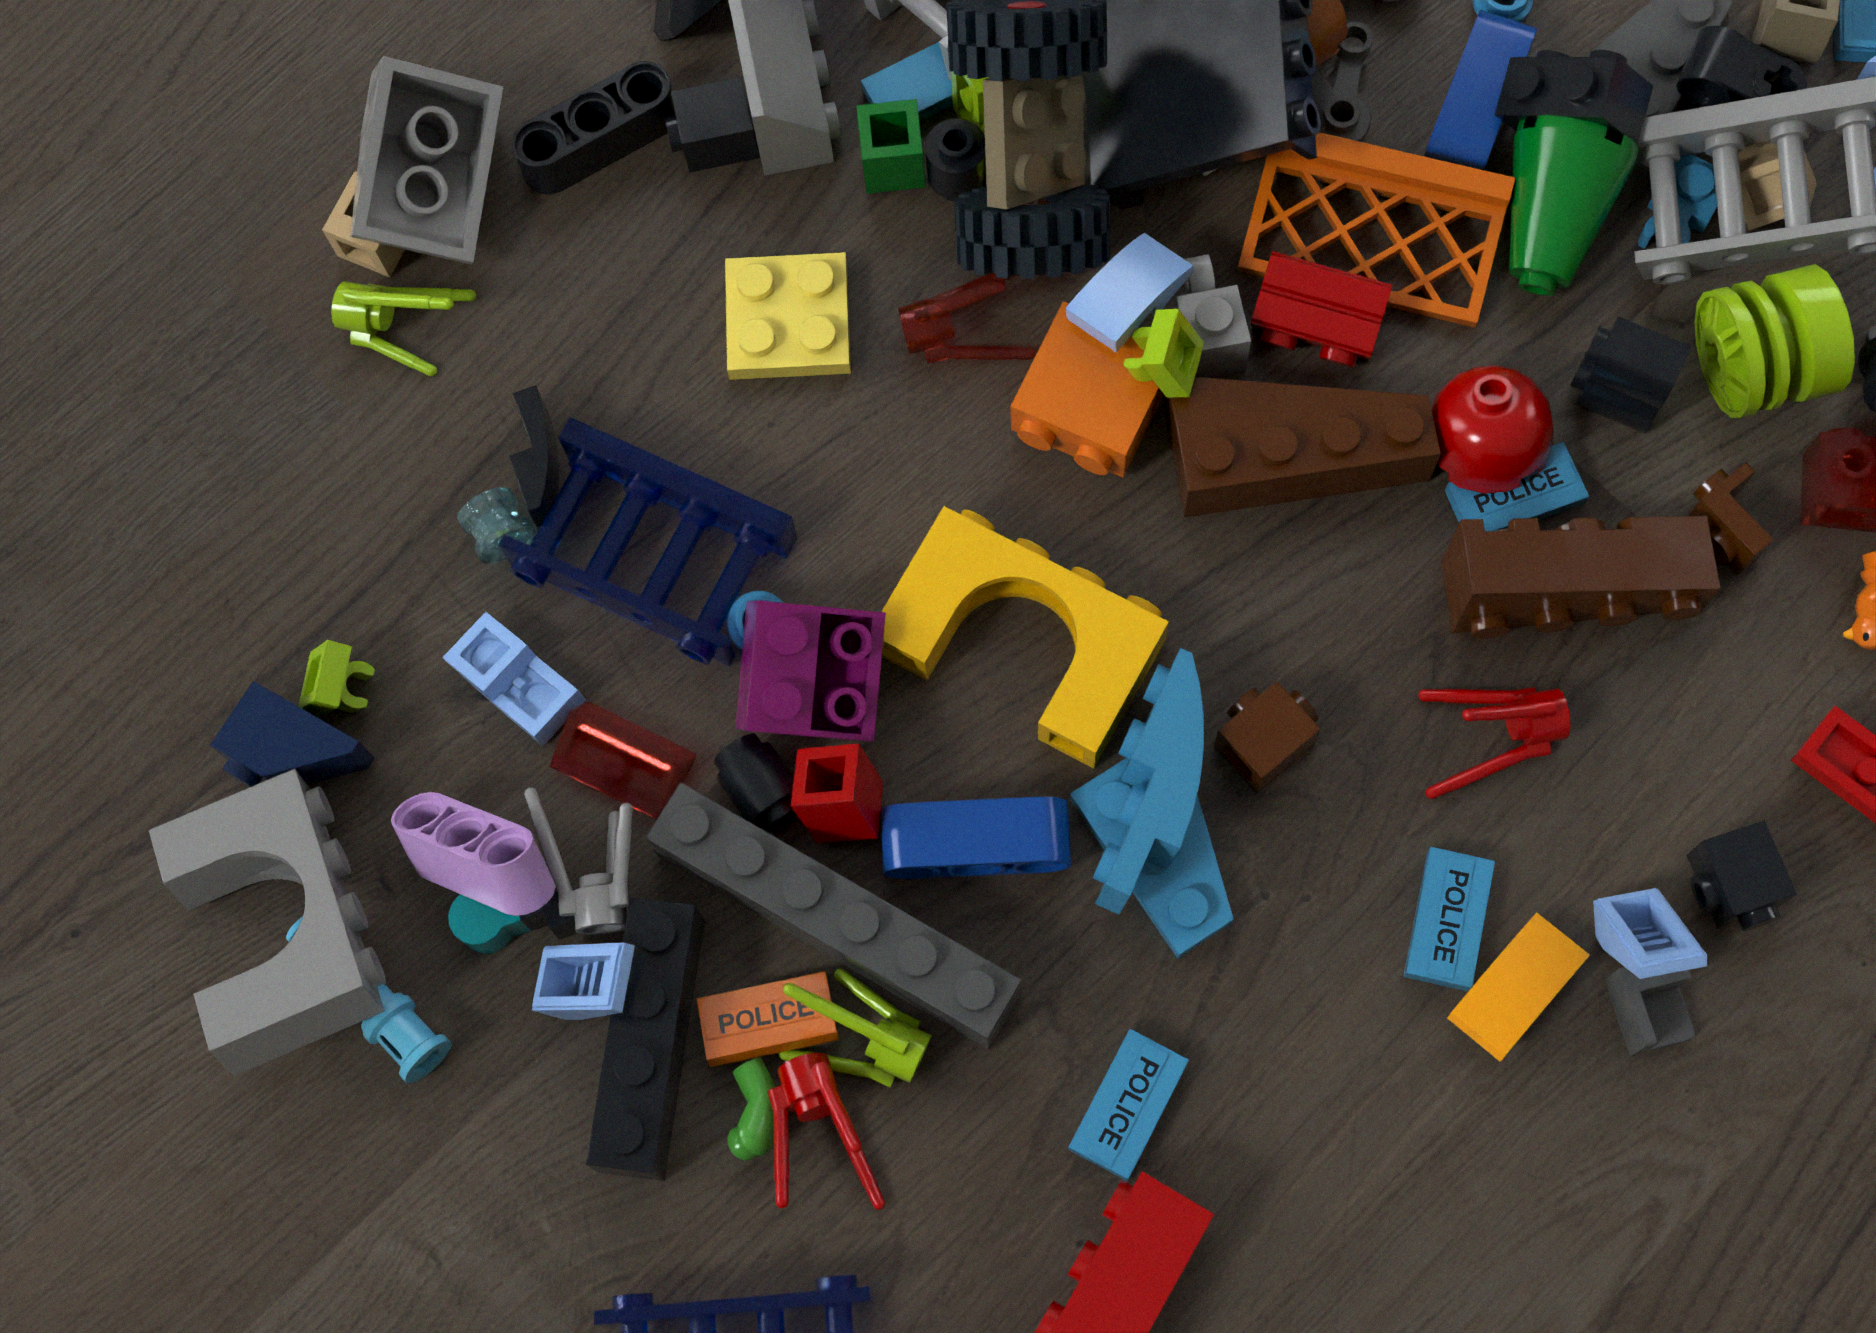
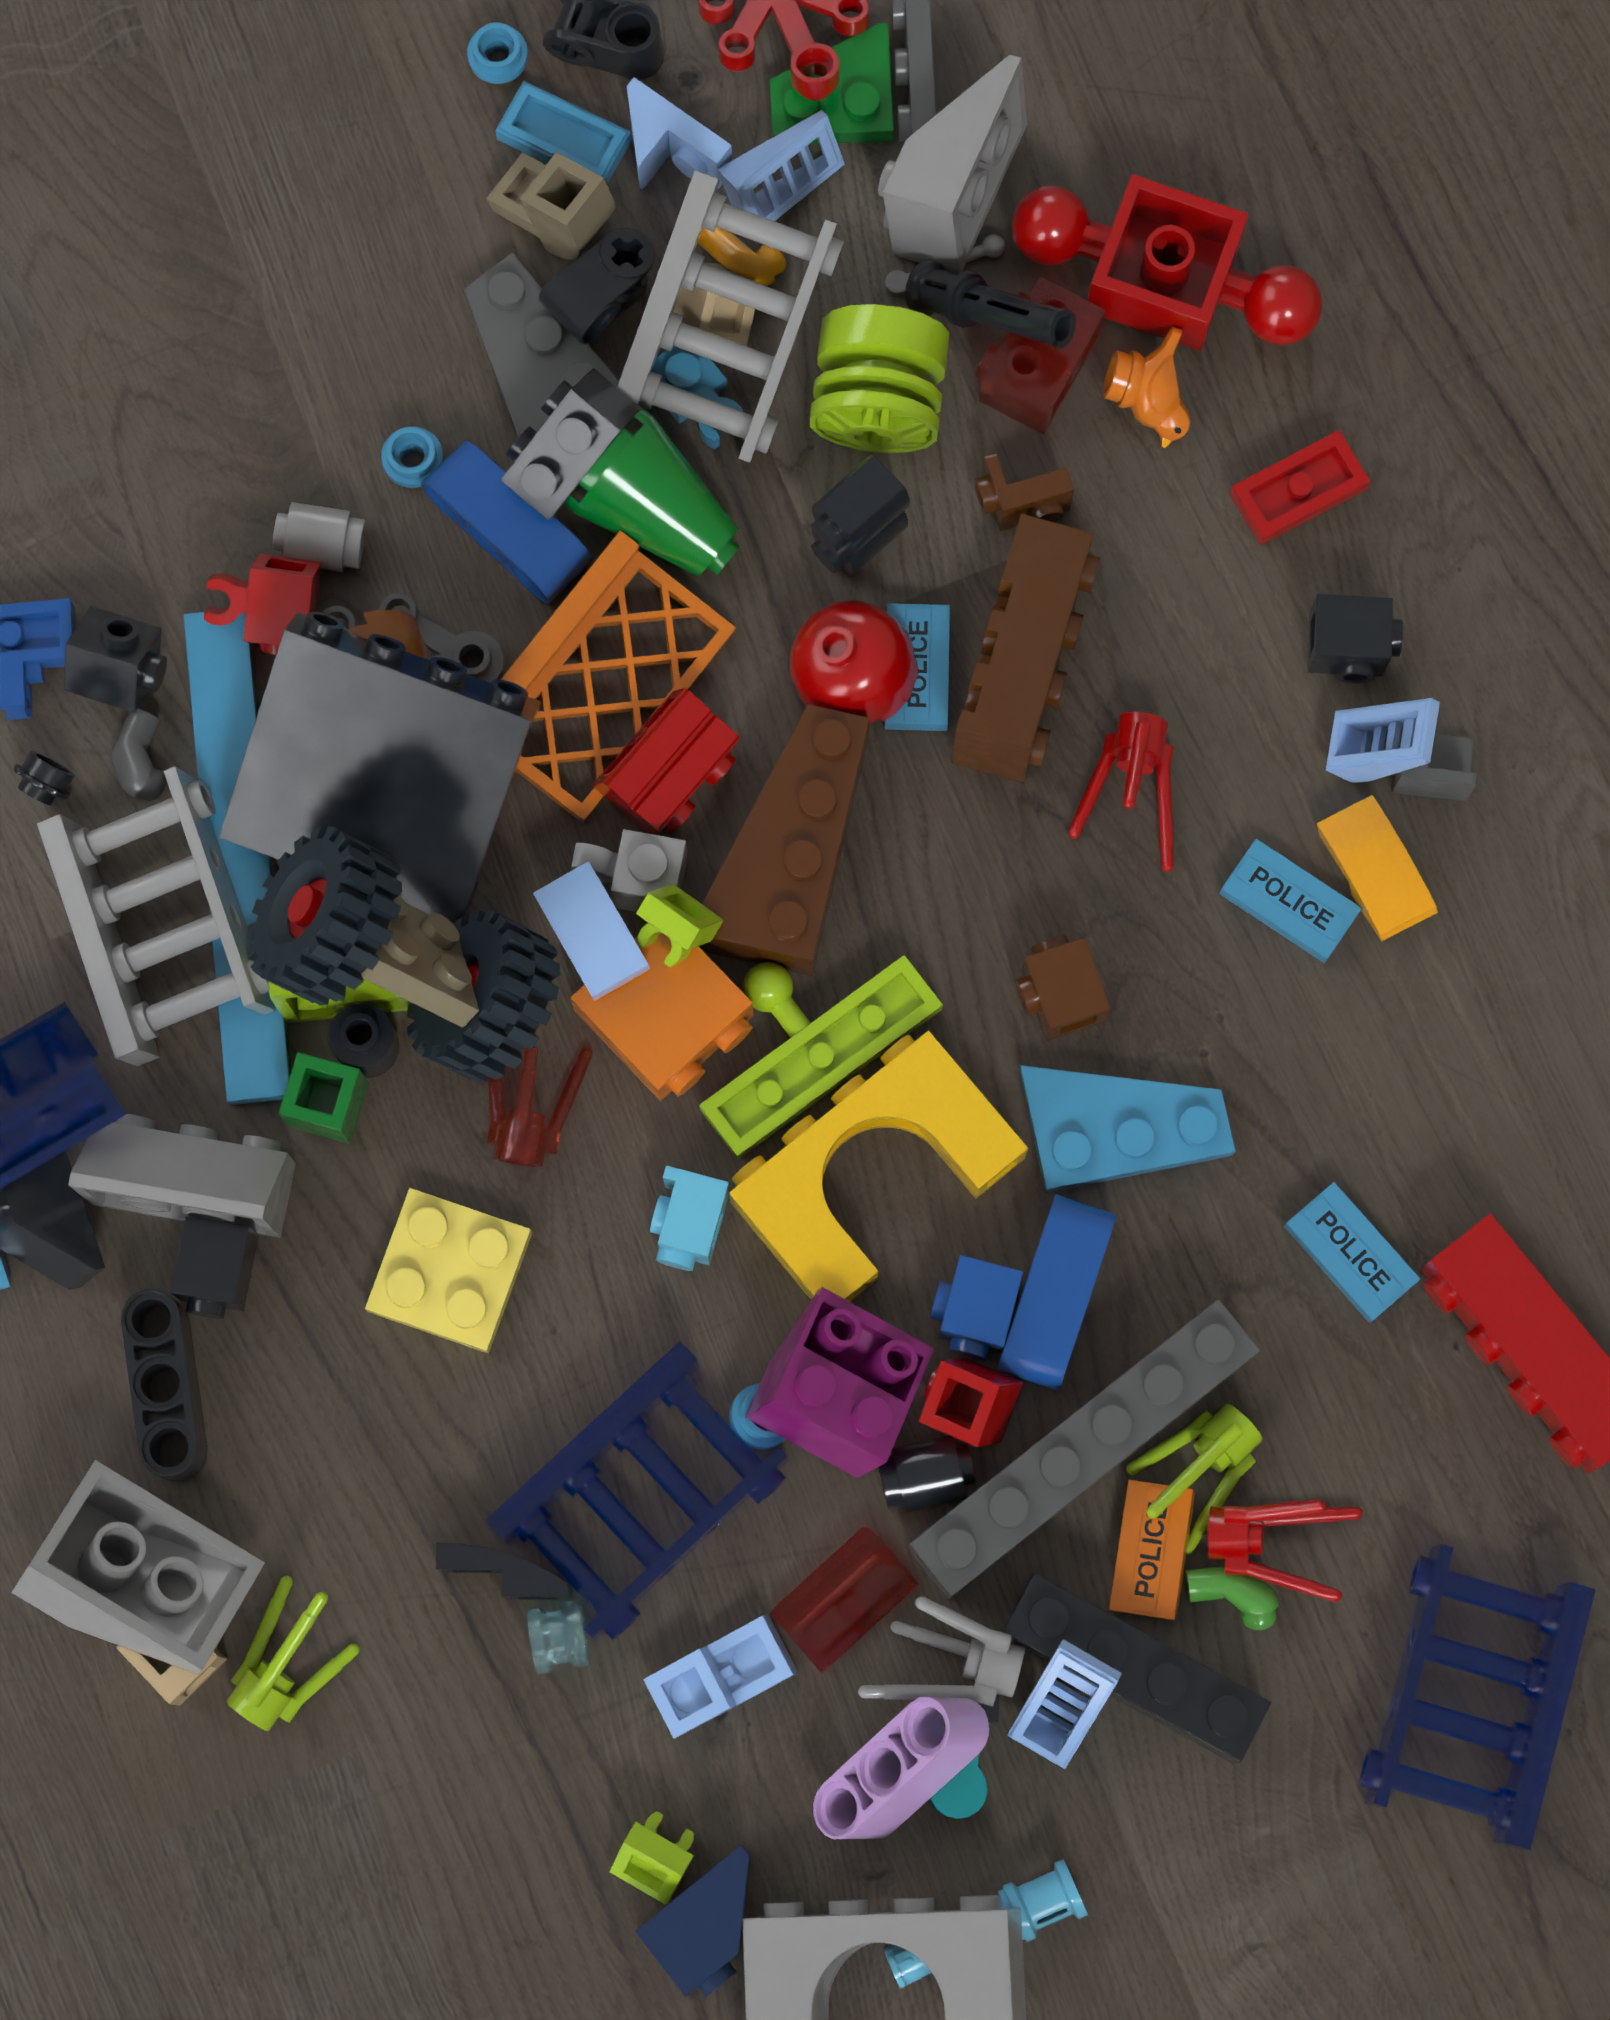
camera: 75 degrees left, 5 degrees up
(909, 489) = (689, 1219): none -> medium azure brick
(930, 766) = (976, 1307): none -> blue brick
(1112, 541) = (818, 1052): none -> lime plate
(1165, 780) = (1061, 1086): dark azure slope -> none
(1829, 186) = (741, 259): none -> light orange arm

